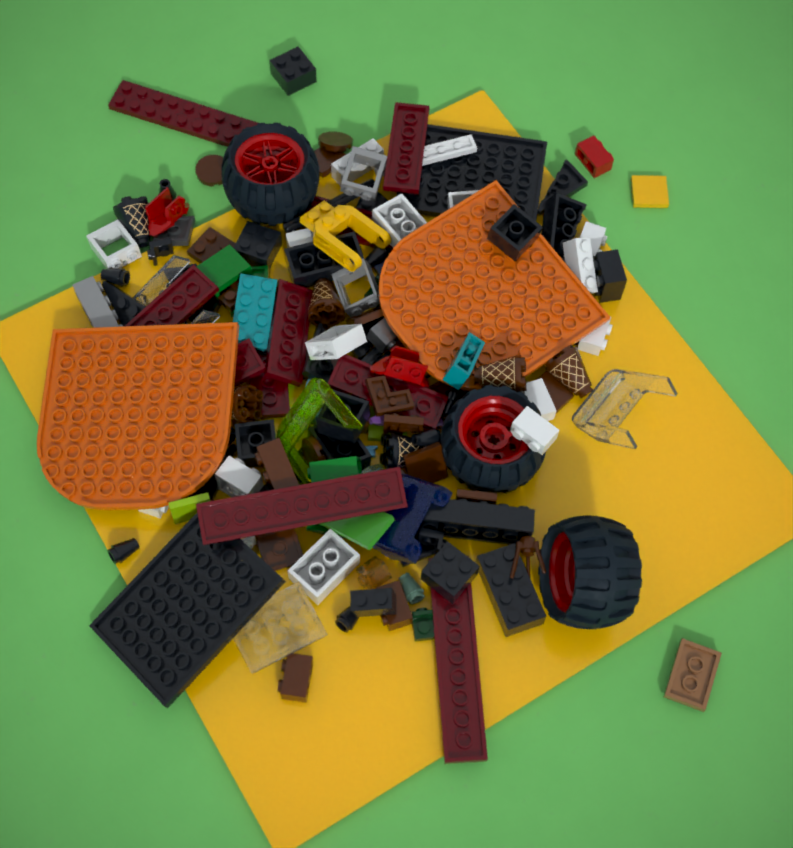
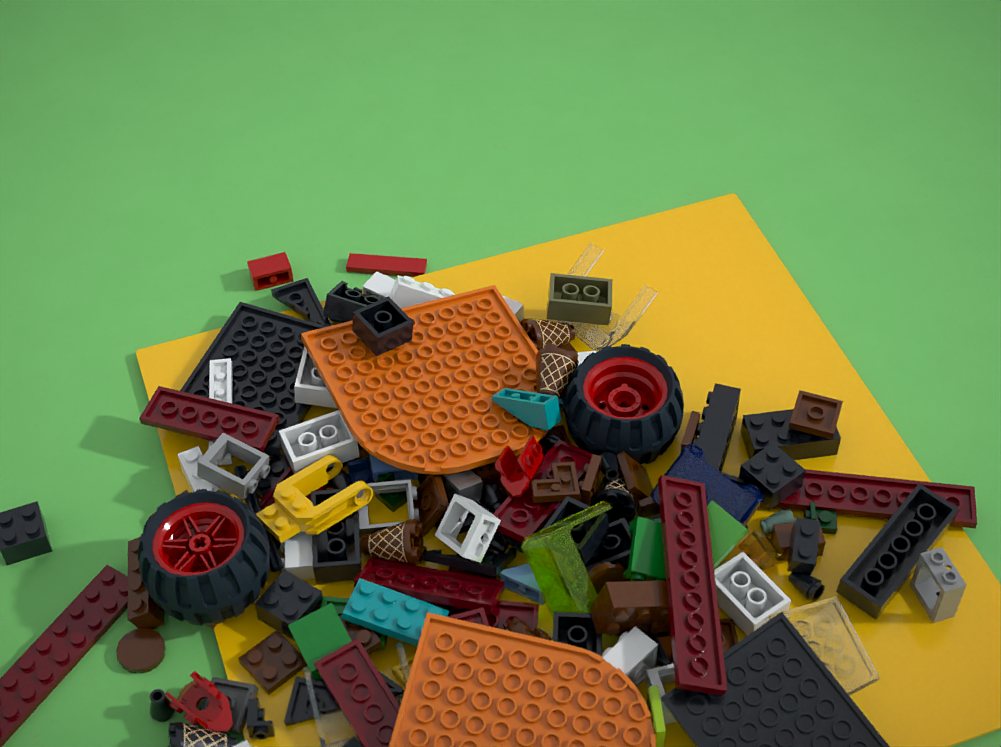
camera: 75 degrees left, 15 degrees down
(296, 677) = (881, 644): reddish brown brick -> none
(335, 141) = (151, 500): tile -> none
(362, 715) = (936, 586): none -> light grey window
(391, 686) = (895, 551): none -> black brick
(522, 601) = (815, 414): none -> reddish brown plate
(527, 546) = (750, 404): reddish brown plant -> none
(534, 430) = (642, 347): white brick -> none
(590, 572) = (797, 327): black wheel -> none
(609, 276) = (439, 273): black brick -> none
(610, 386) = (579, 299): none -> olive brick
(632, 241) = (386, 265): none -> red tile
(649, 191) = (329, 239): yellow tile -> none
(692, 675) = (886, 318): medium nougat plate -> none

